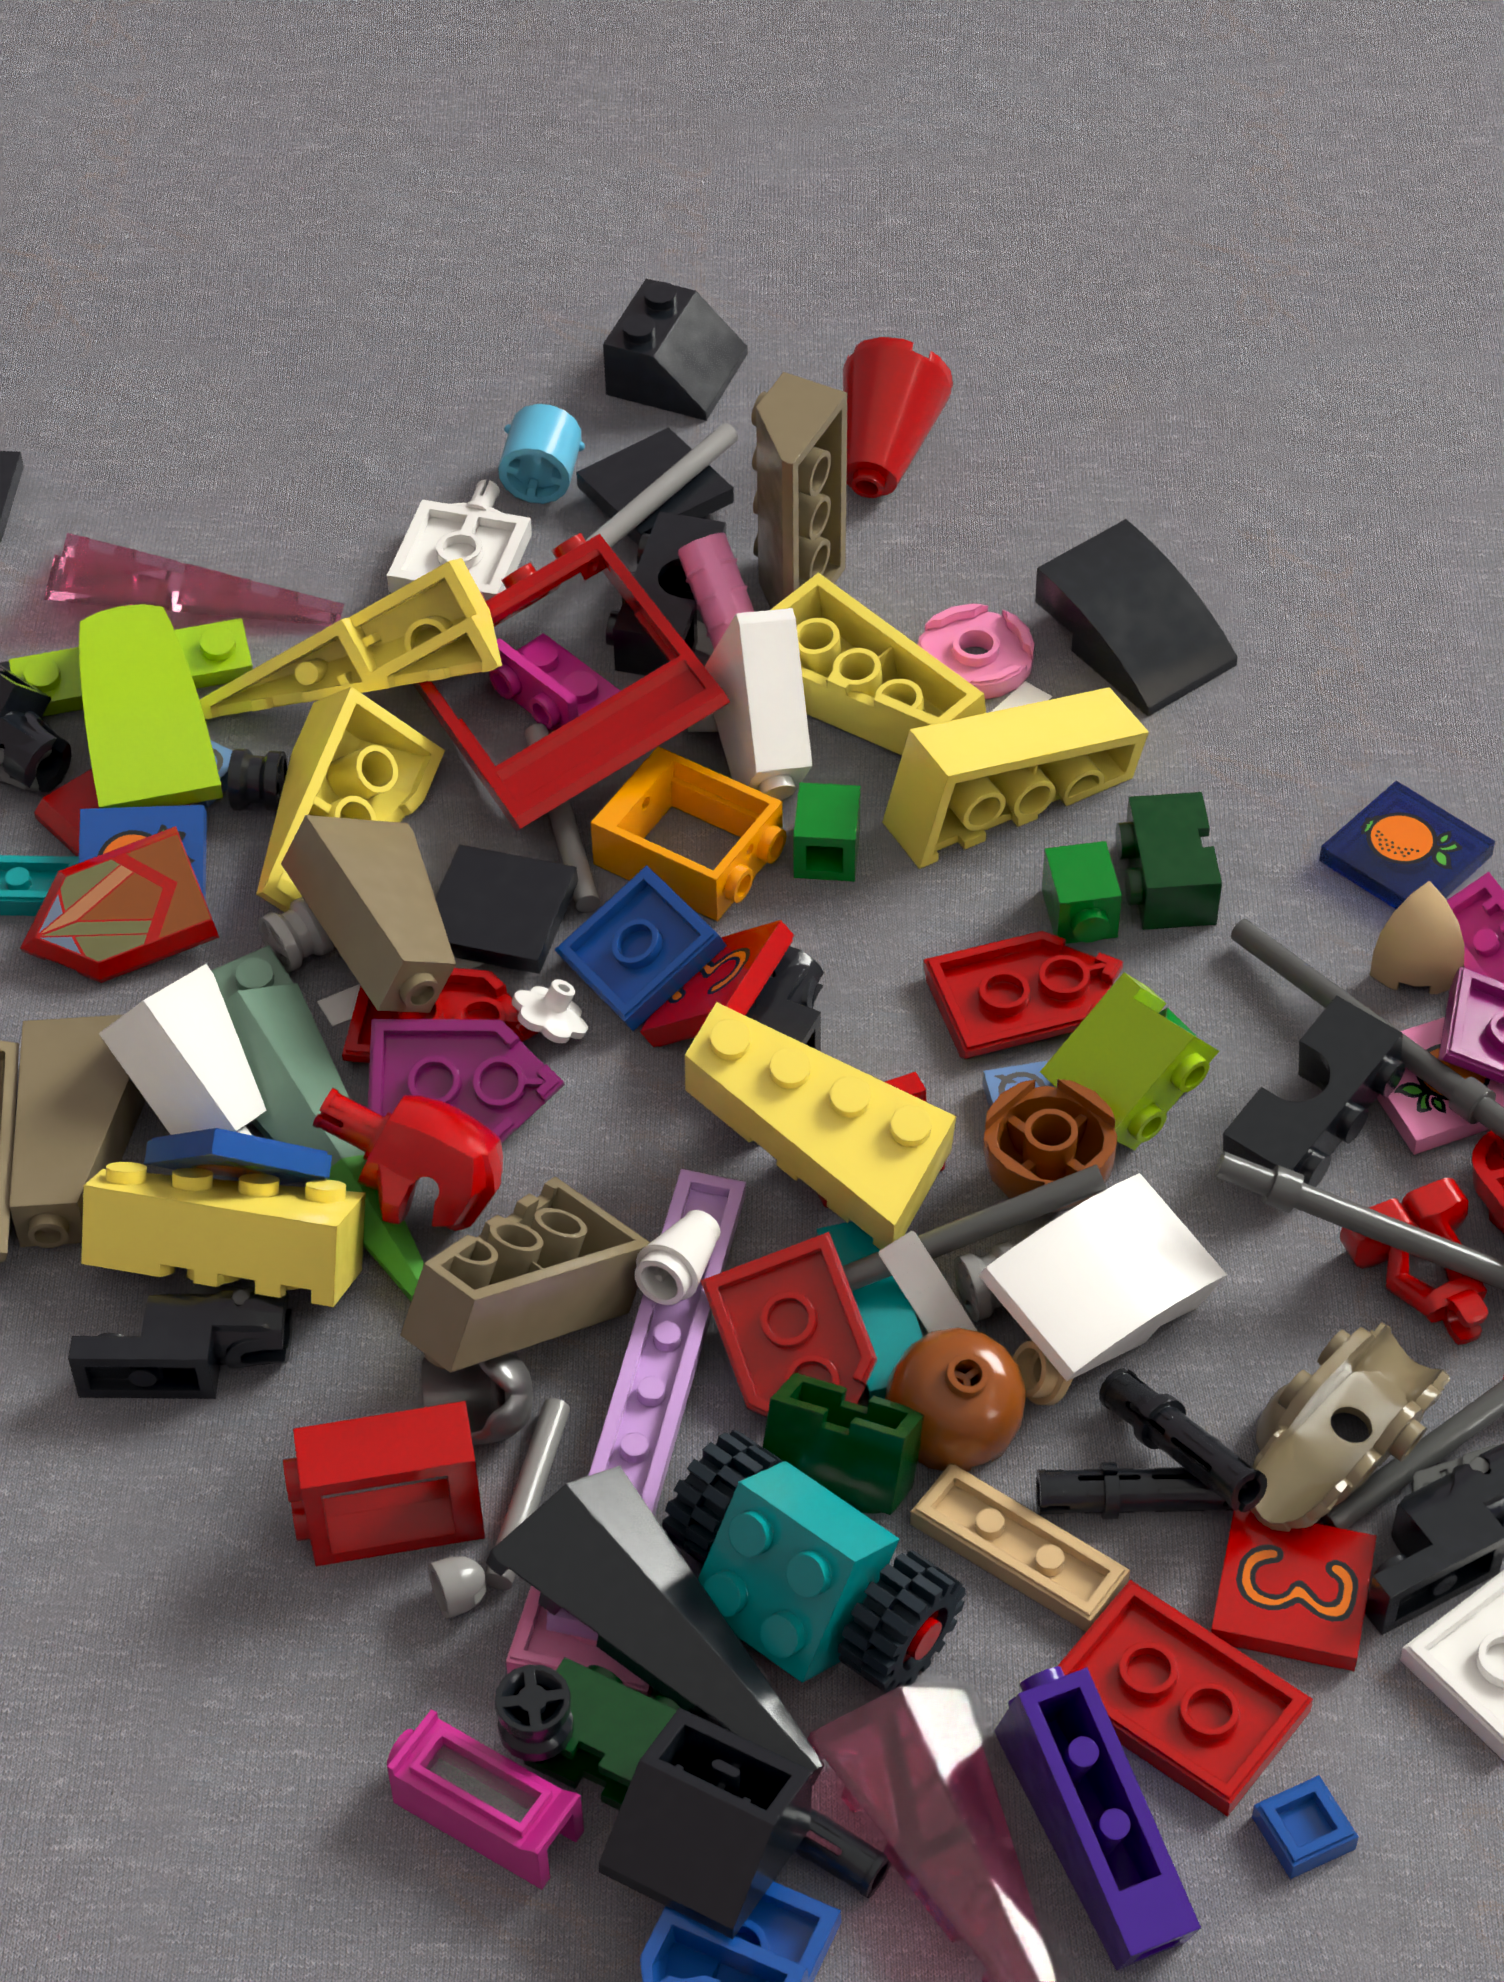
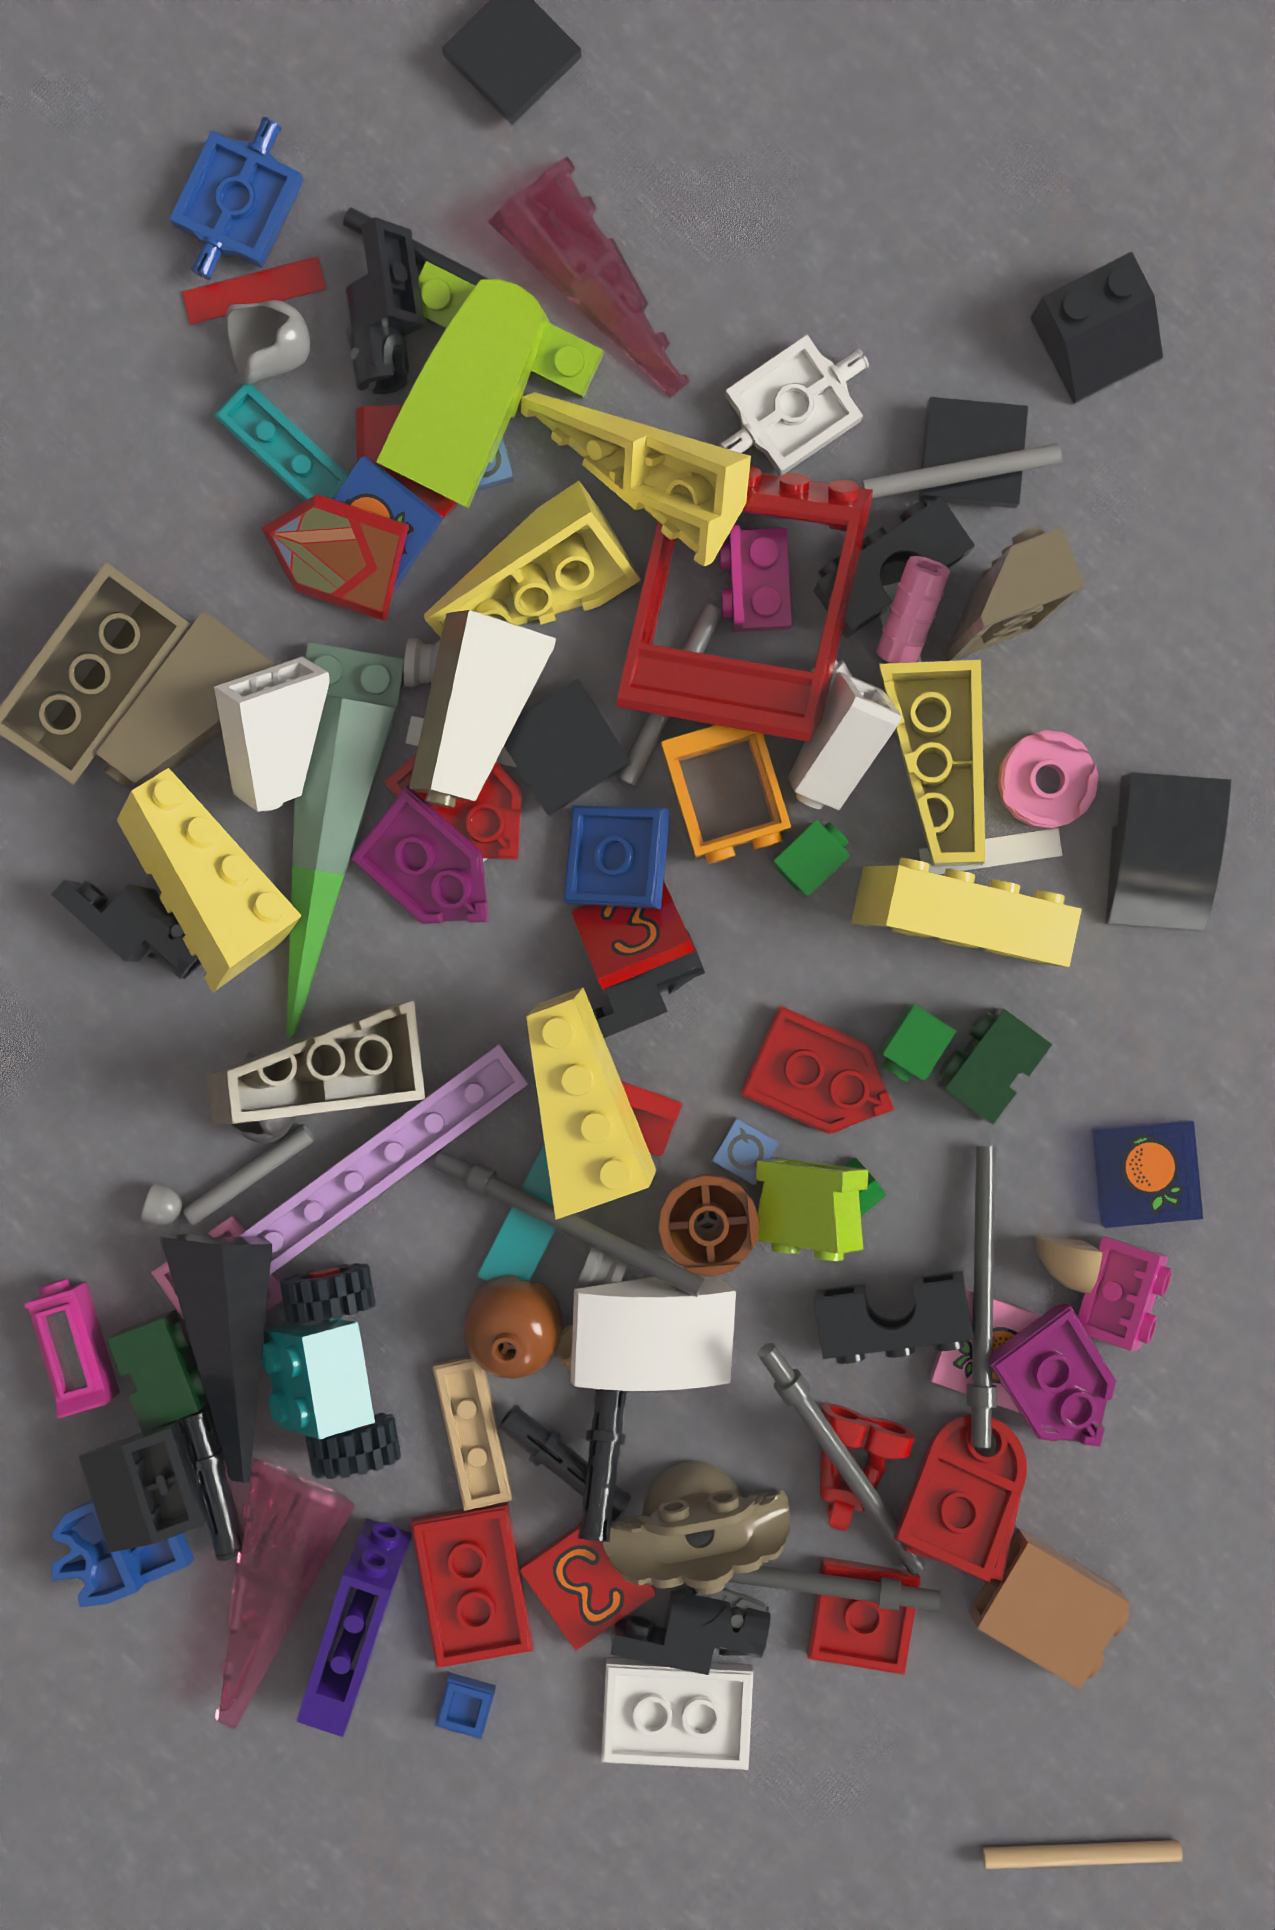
camera: 40 degrees right, 40 degrees up
(238, 1154) = (237, 840): blue tile -> none
(256, 778) = (503, 507): black wheel -> none
(377, 1454) = (155, 1131): red window -> none
(416, 1142) = (349, 920): red piece -> none
(534, 1693) = (99, 1359): black wheel -> none
(540, 453) = (920, 357): medium azure piece -> none
(551, 1011) = (527, 855): white plant -> none
(676, 1260) = (433, 1119): white cone -> none
(791, 1317) = (460, 1213): red tile -> none
(847, 1448) = (421, 1309): dark green brick -> none
(890, 410) = (1175, 531): red cone -> none
(924, 1284) = (559, 1251): white sticker -> none

